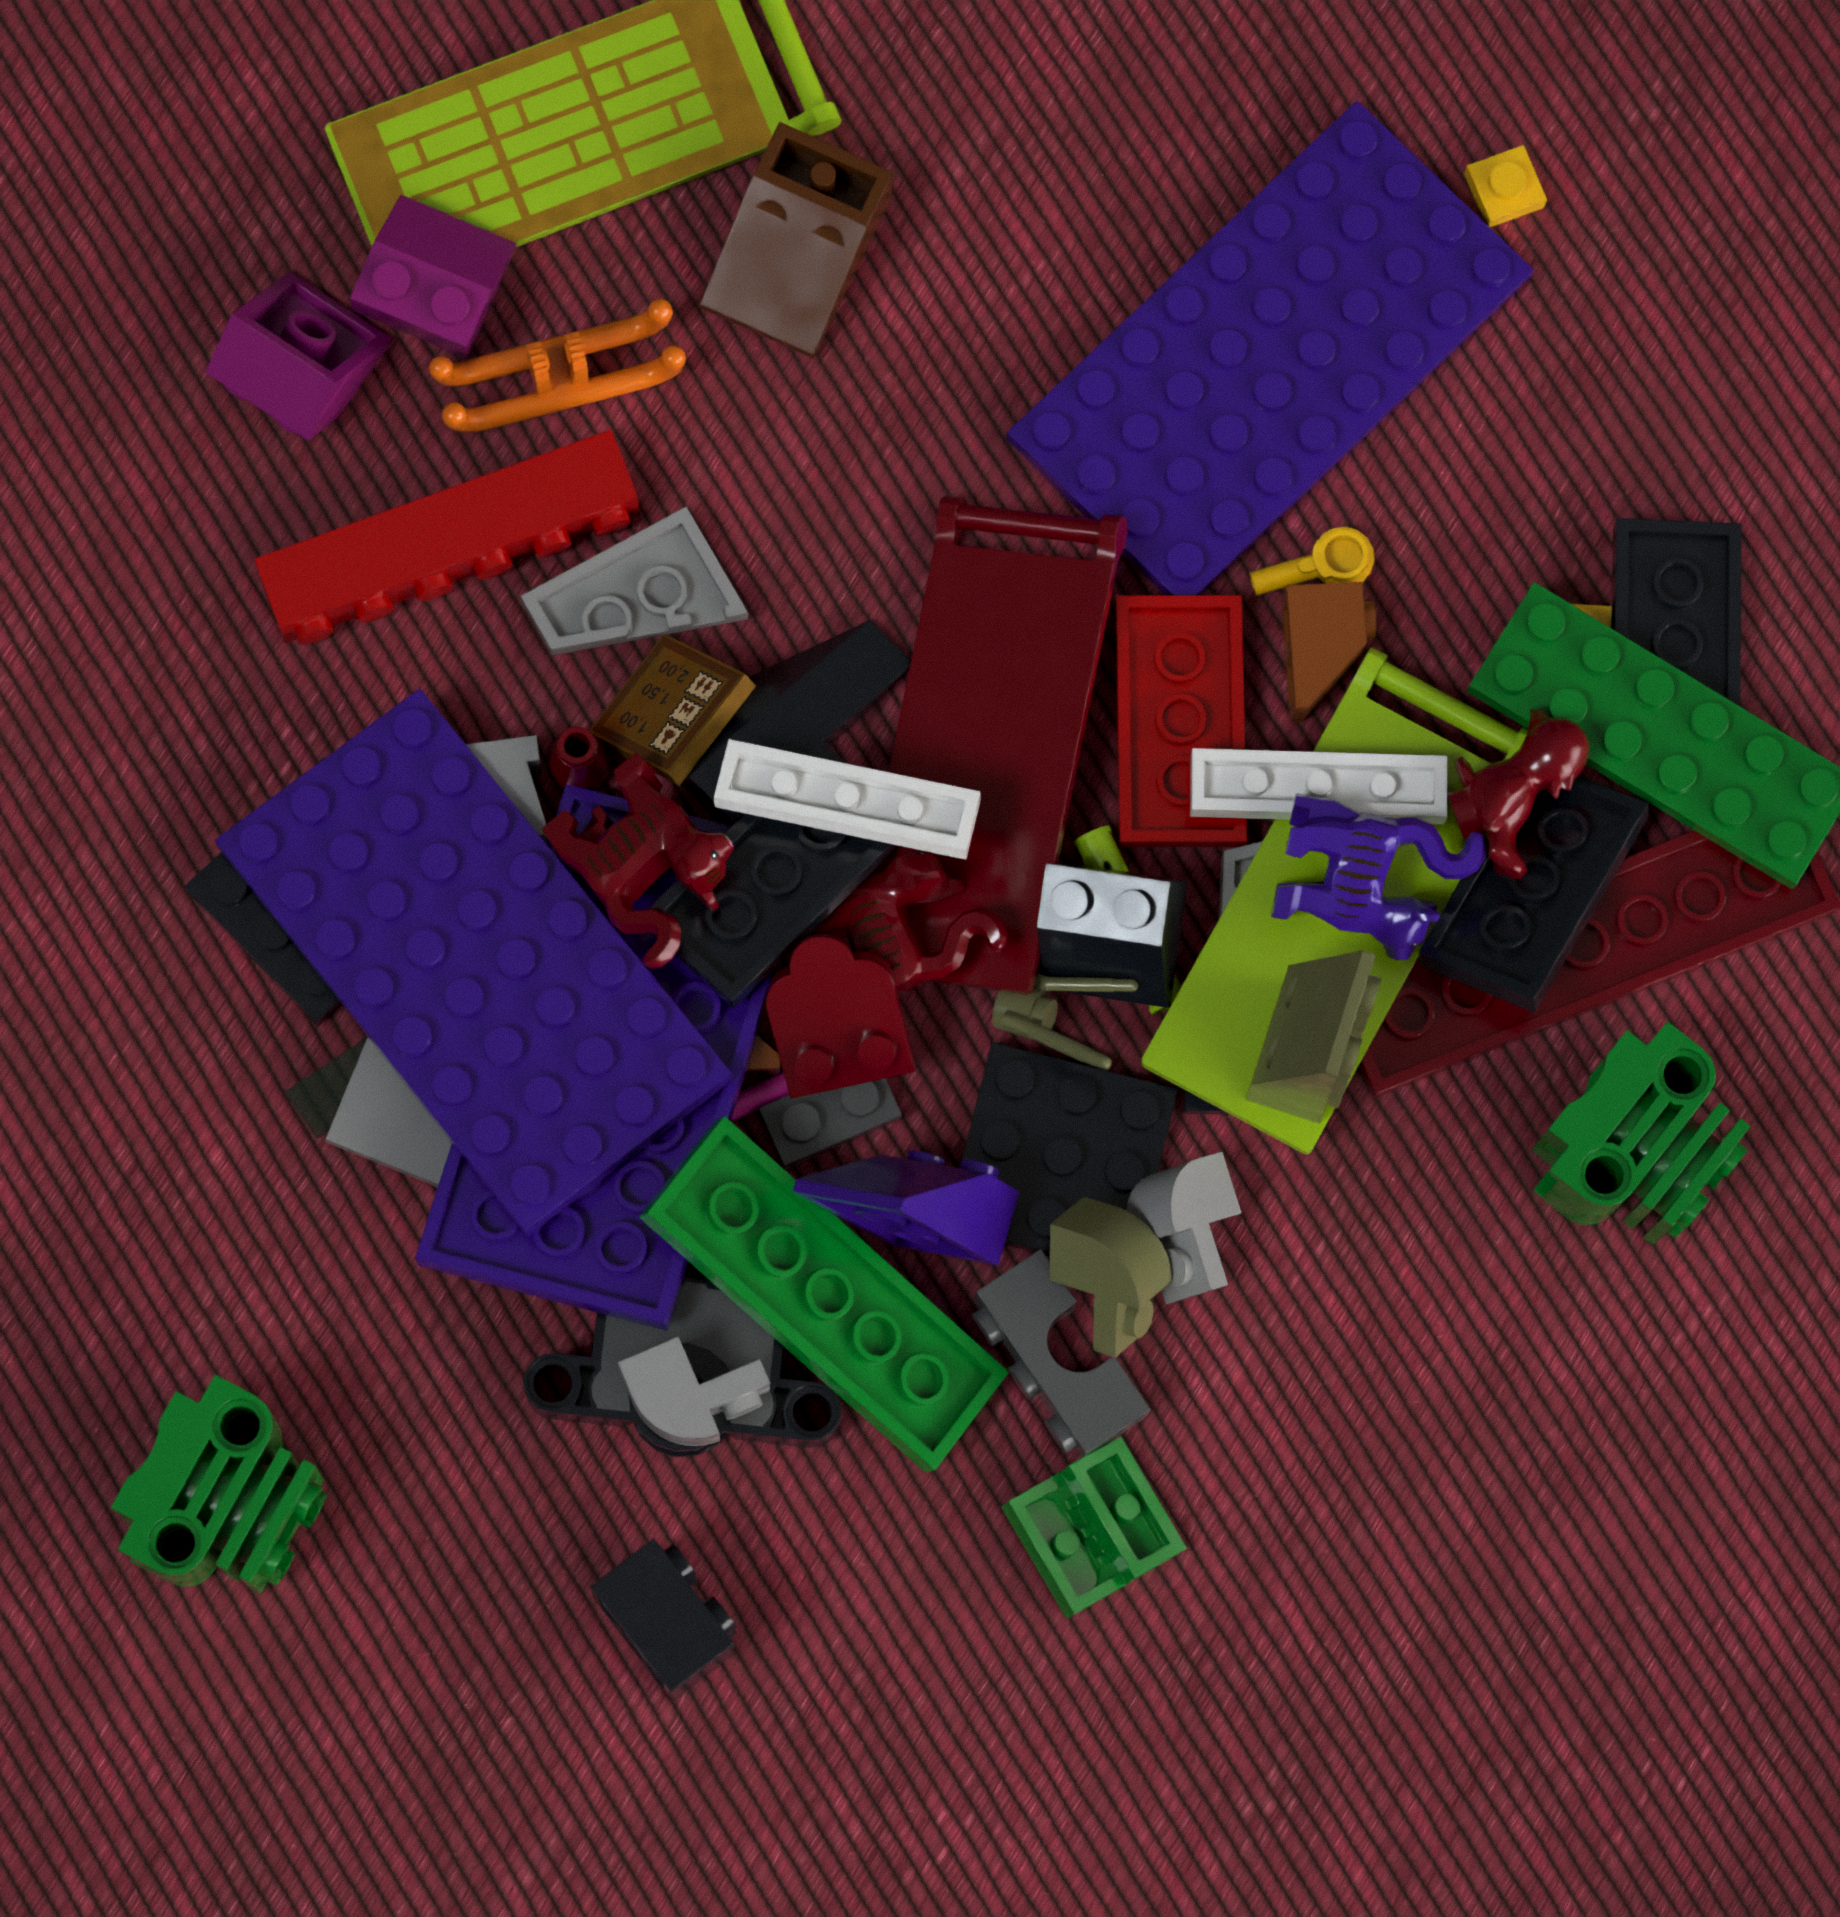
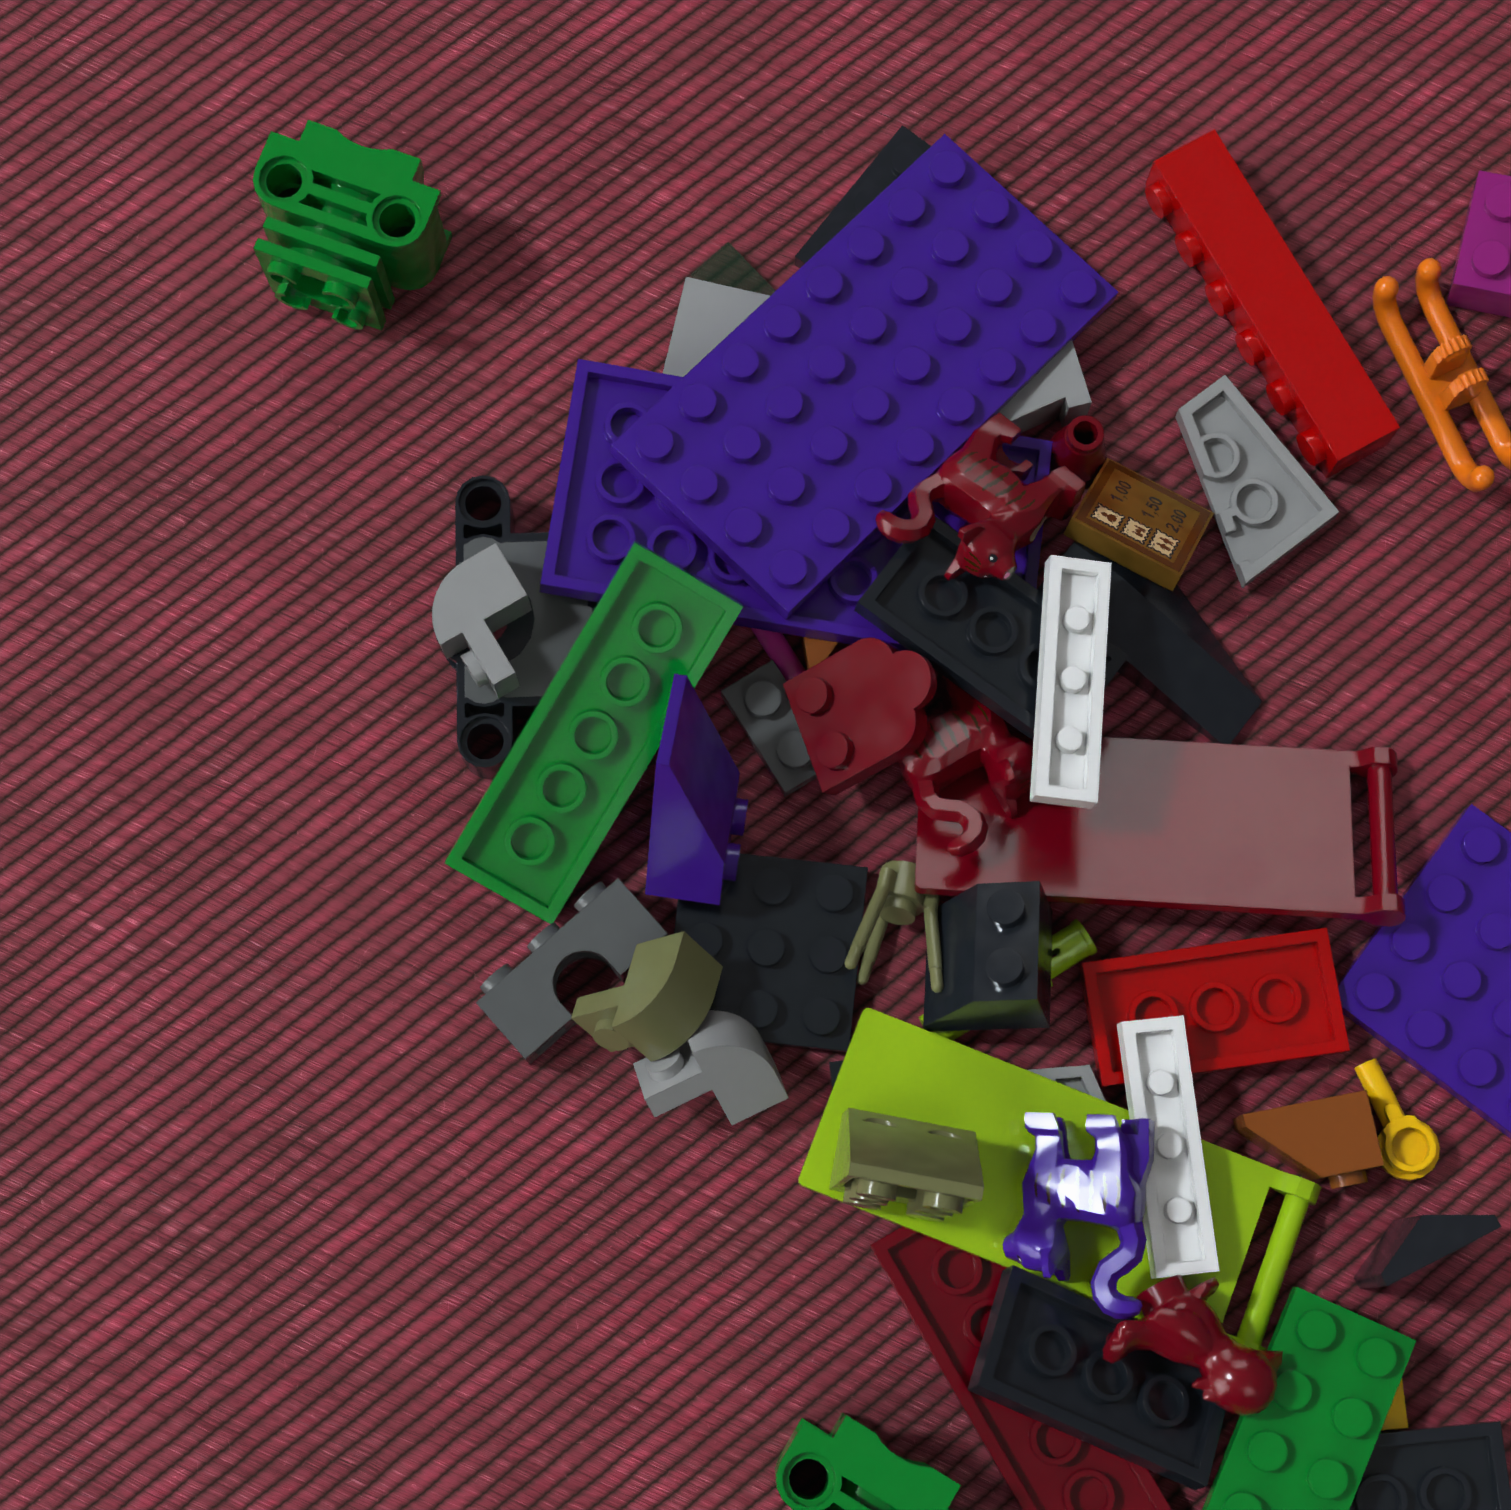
camera: 90 degrees right, 0 degrees up
(296, 355) = (1418, 146): magenta slope -> none
(664, 1618) = (273, 631): black brick -> none
(1093, 1527) = (415, 1026): green slope -> none
(1442, 563) = (1419, 1242): none -> black slope

